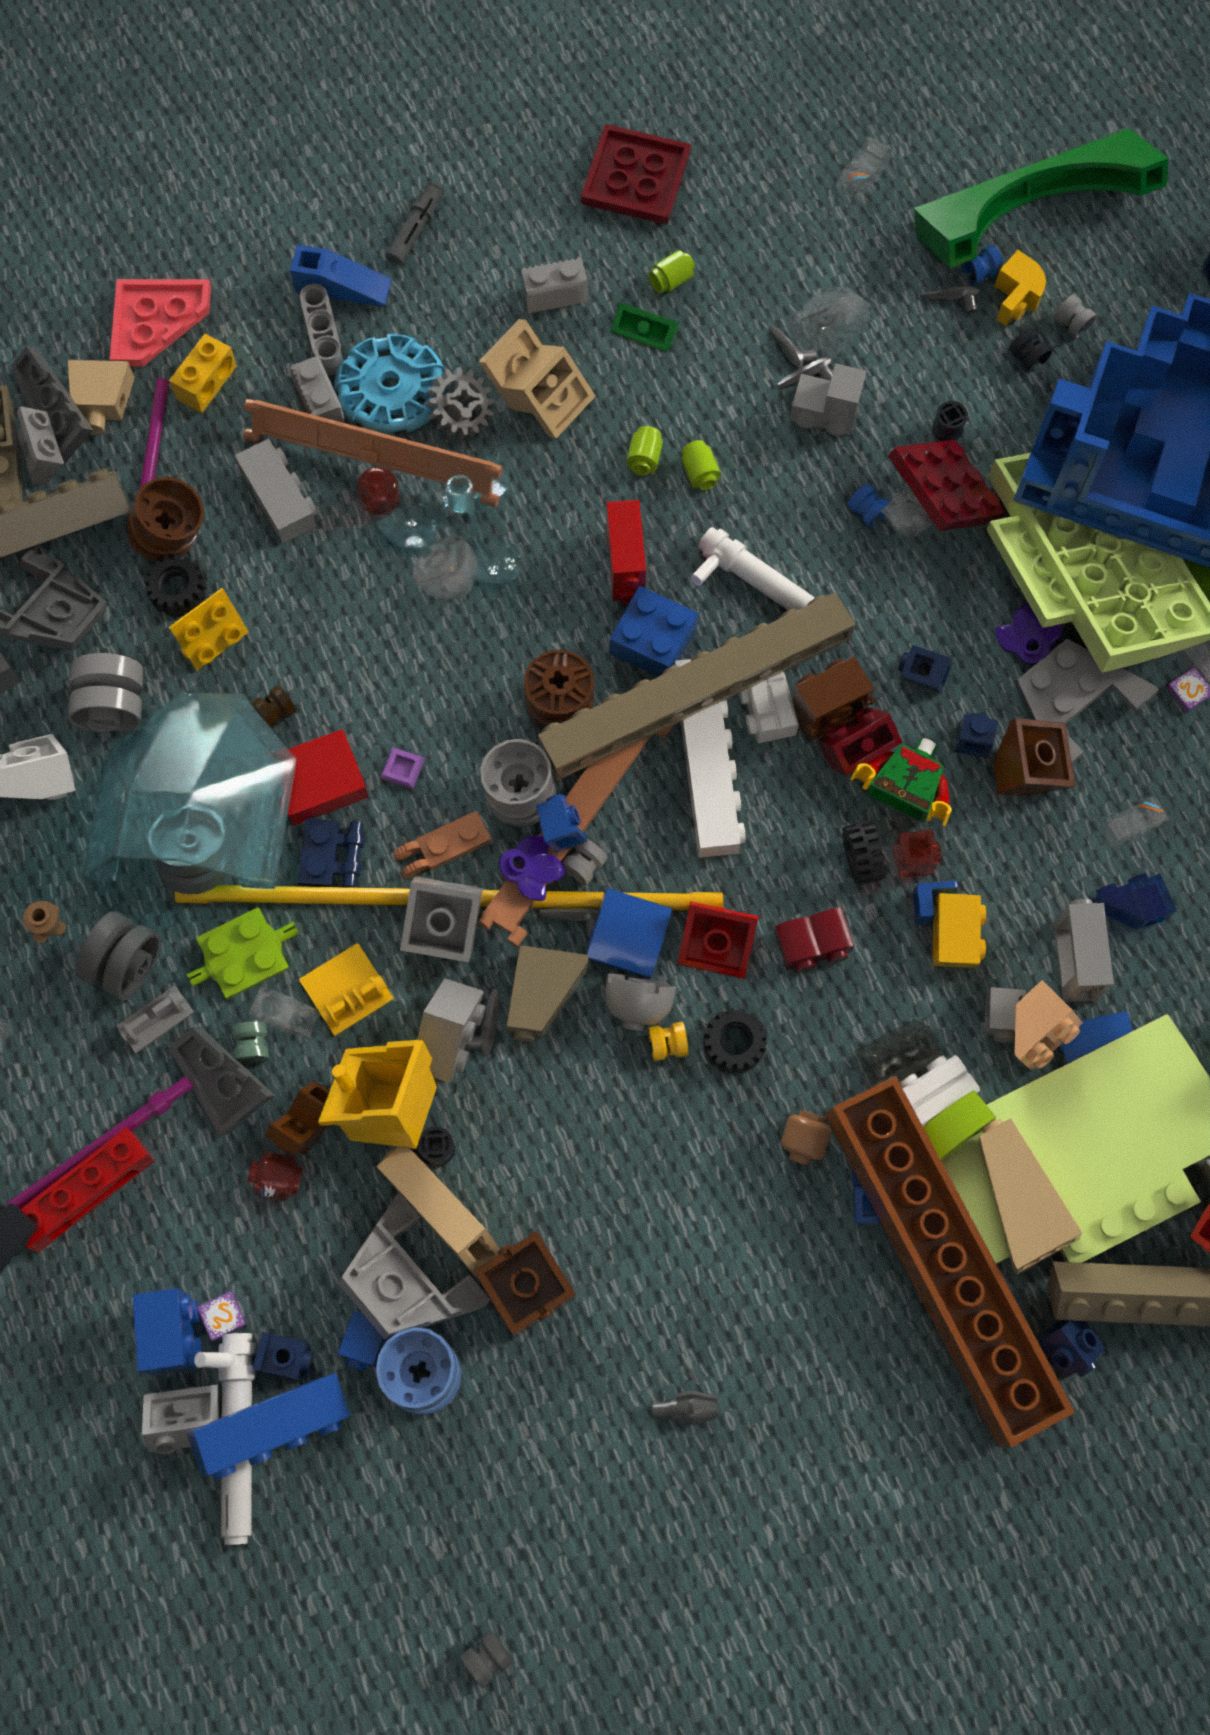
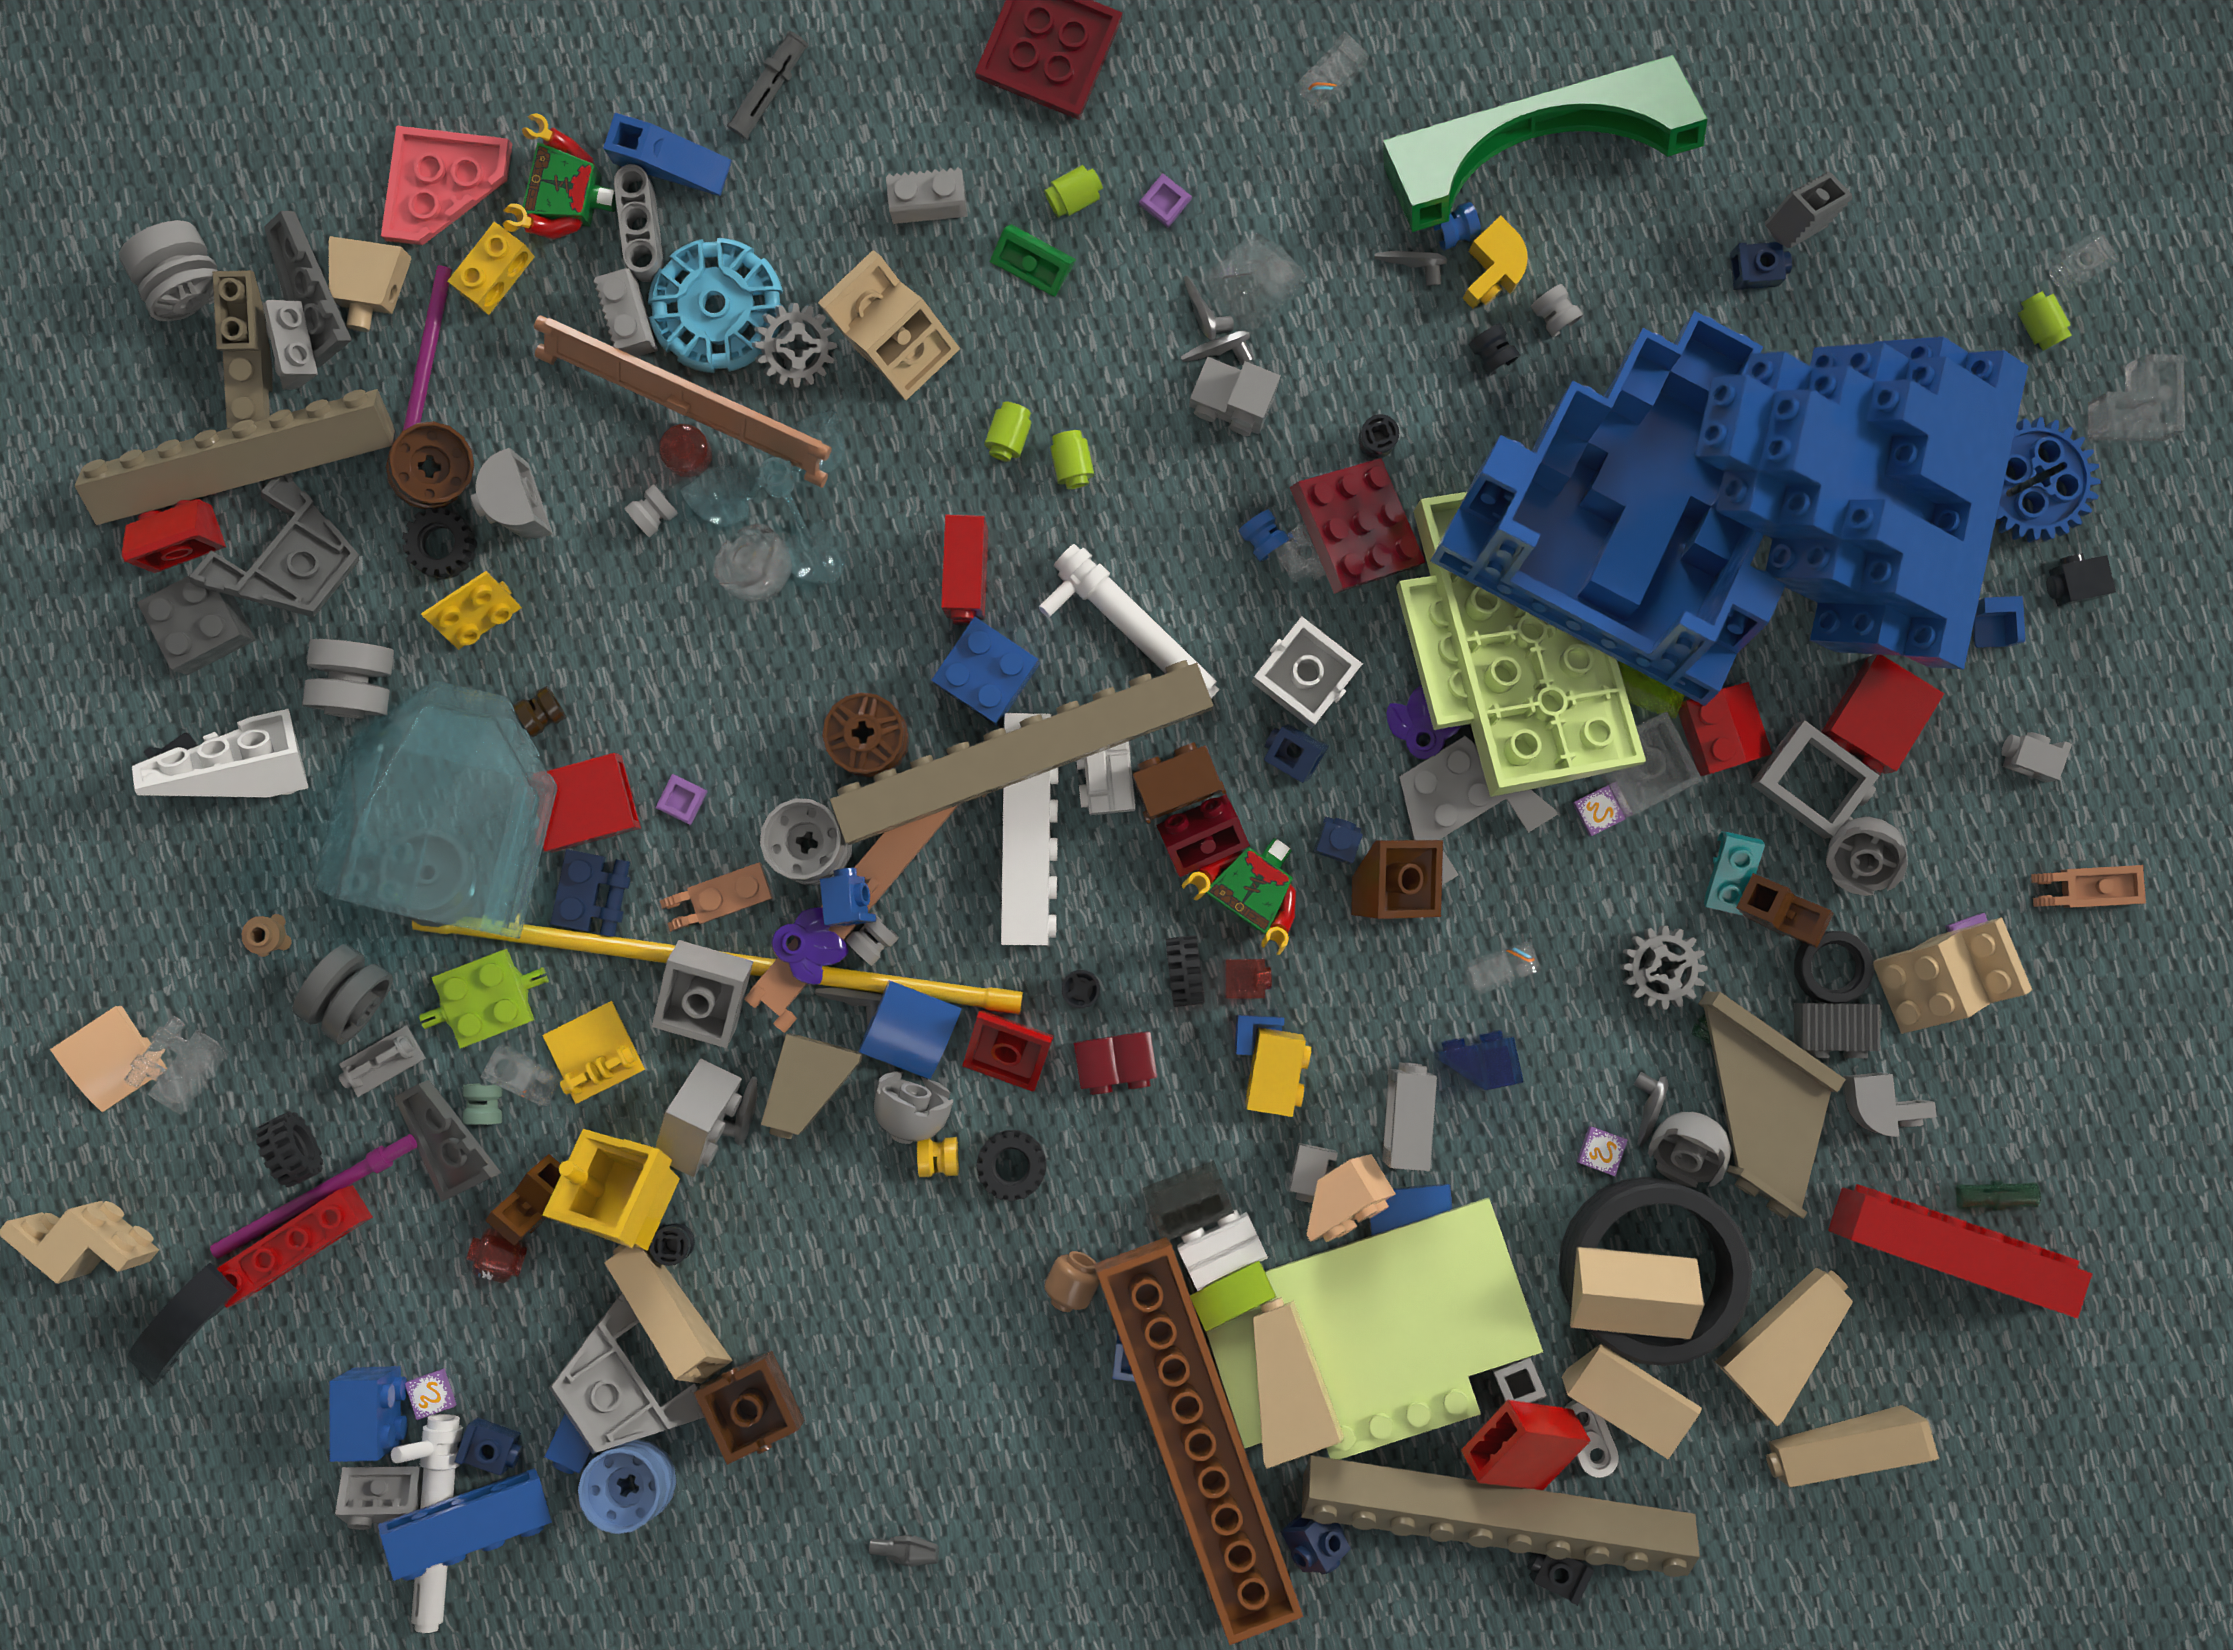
camera: 10 degrees right, 15 degrees up
(77, 1100) = (289, 1149): none -> black tyre
(234, 539) = (510, 495): none -> light grey brick
(255, 307) = (560, 187): none -> torso
(277, 490) = (566, 434): light grey brick -> none
(354, 540) = (651, 510): none -> light grey wheel
(745, 273) = (1165, 200): none -> medium lavender tile
(774, 875) = (1080, 989): none -> black wheel
(924, 603) = (1306, 672): none -> white brick

